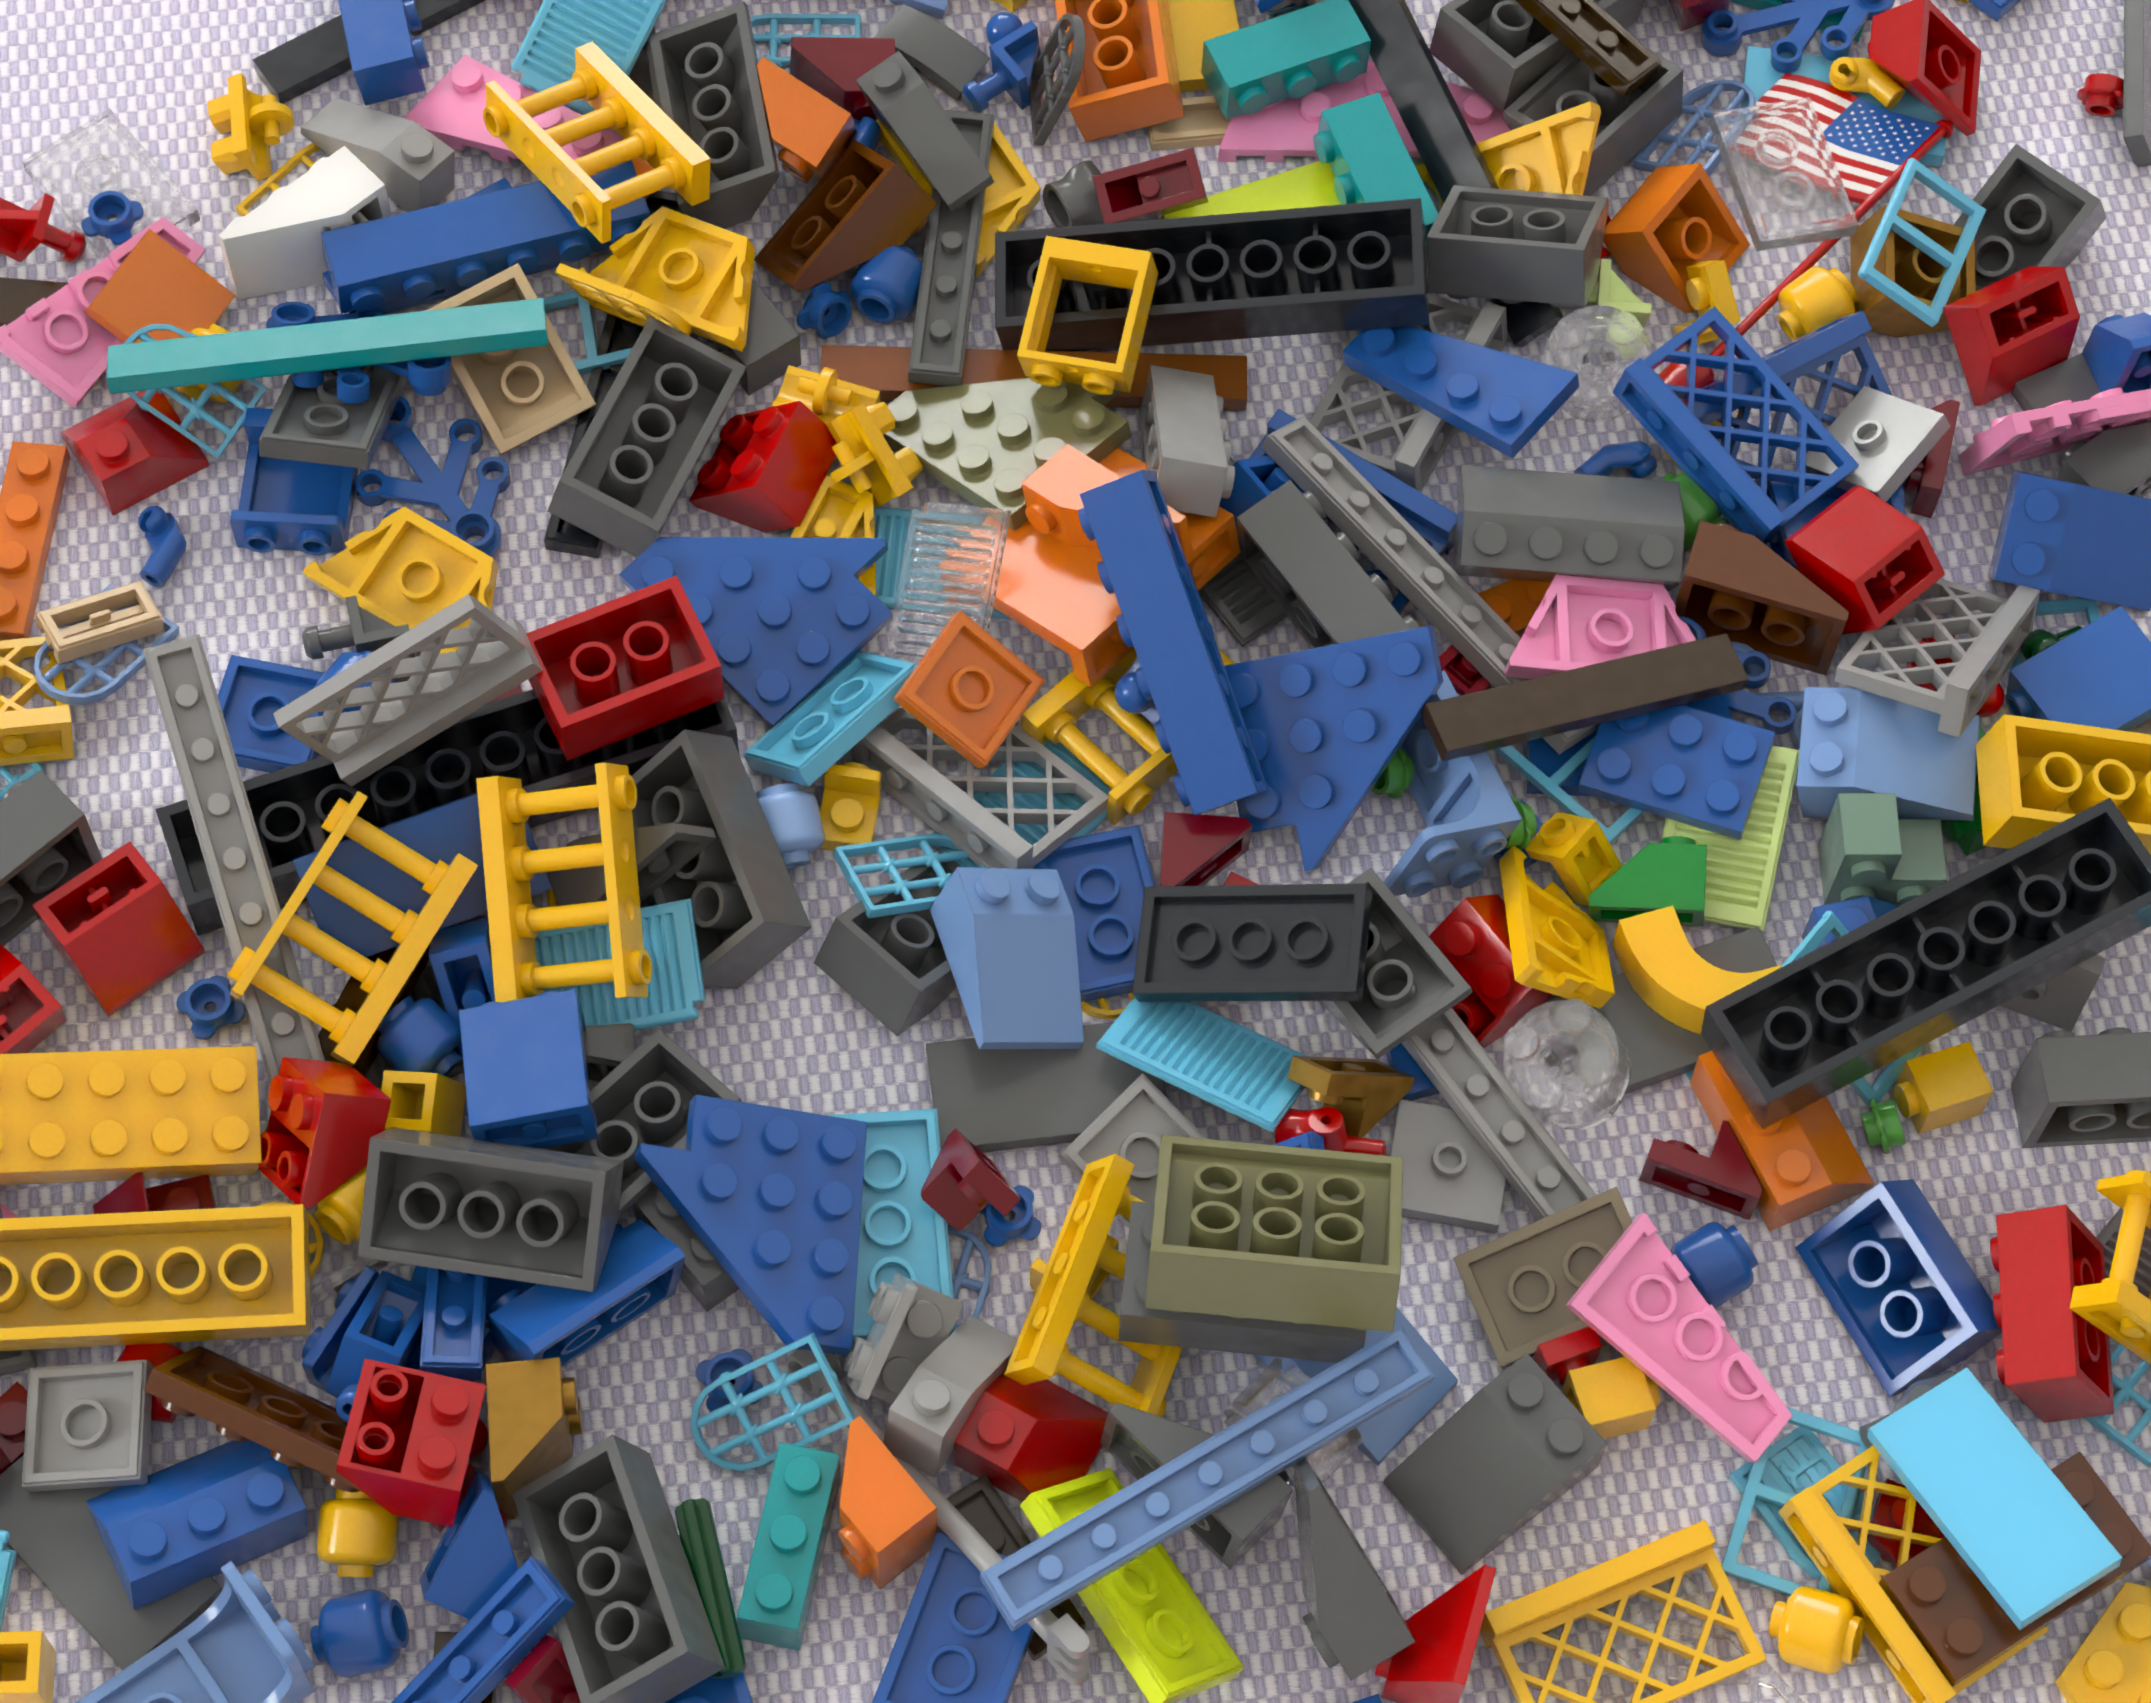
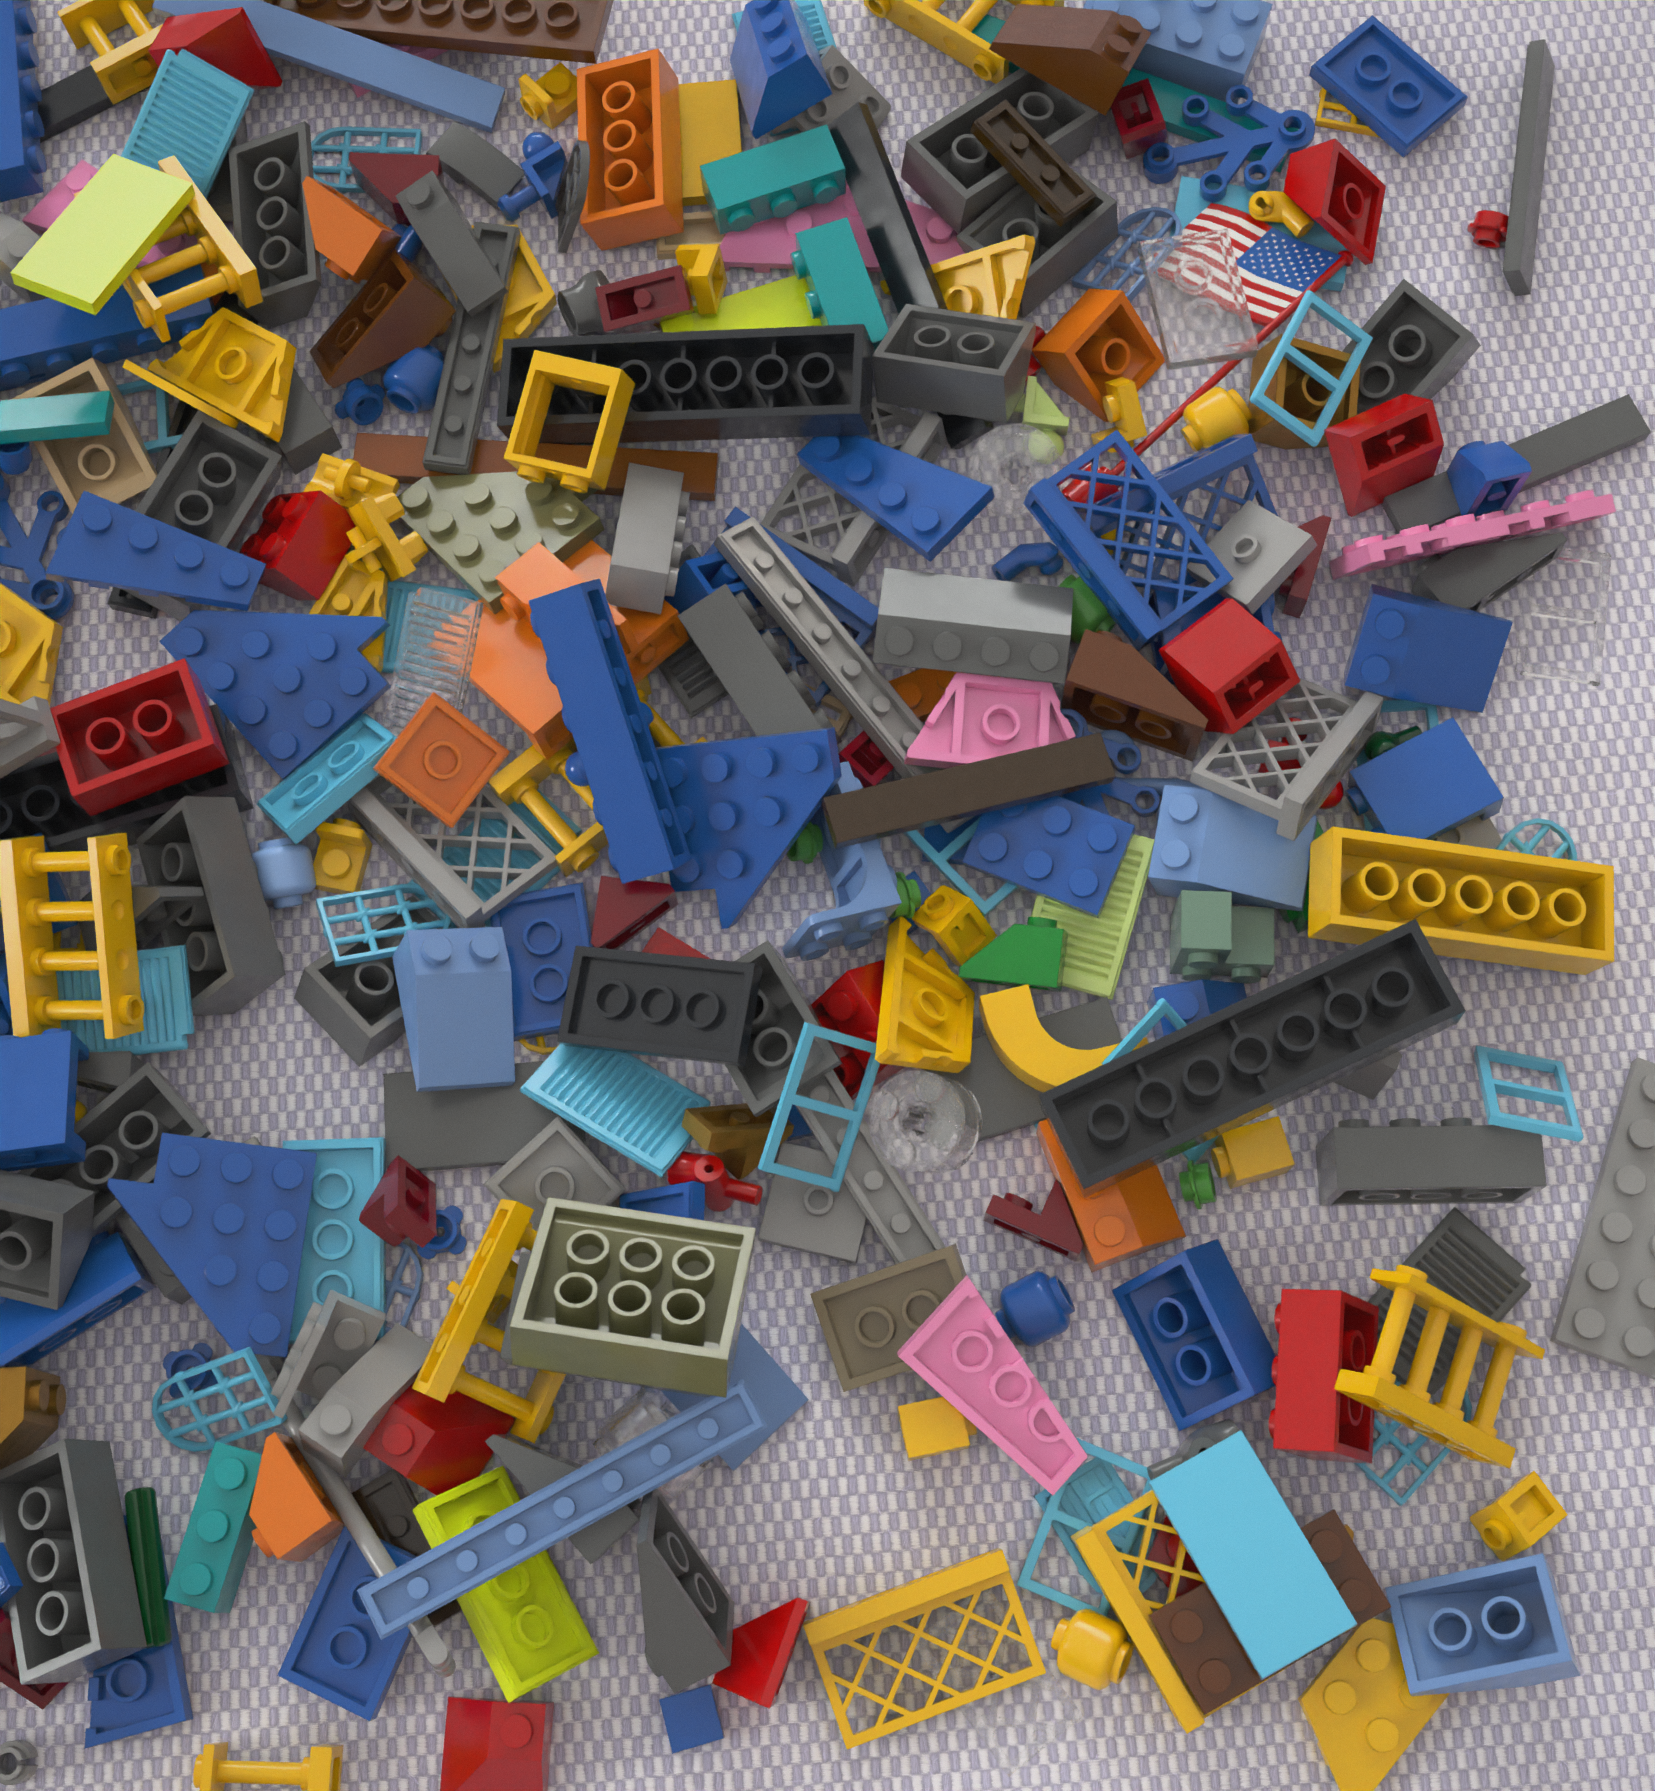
camera: 10 degrees right, 10 degrees up
(532, 123) = (103, 234): none -> neon yellow tile
(601, 470) = (138, 553): none -> blue wing
(1215, 160) = (704, 274): none -> yellow bracket
(1417, 1031) = (790, 1097): none -> medium azure window
(1496, 1464) = (829, 1482): dark grey slope -> none
(1568, 1353) = (900, 1388): red plate -> none

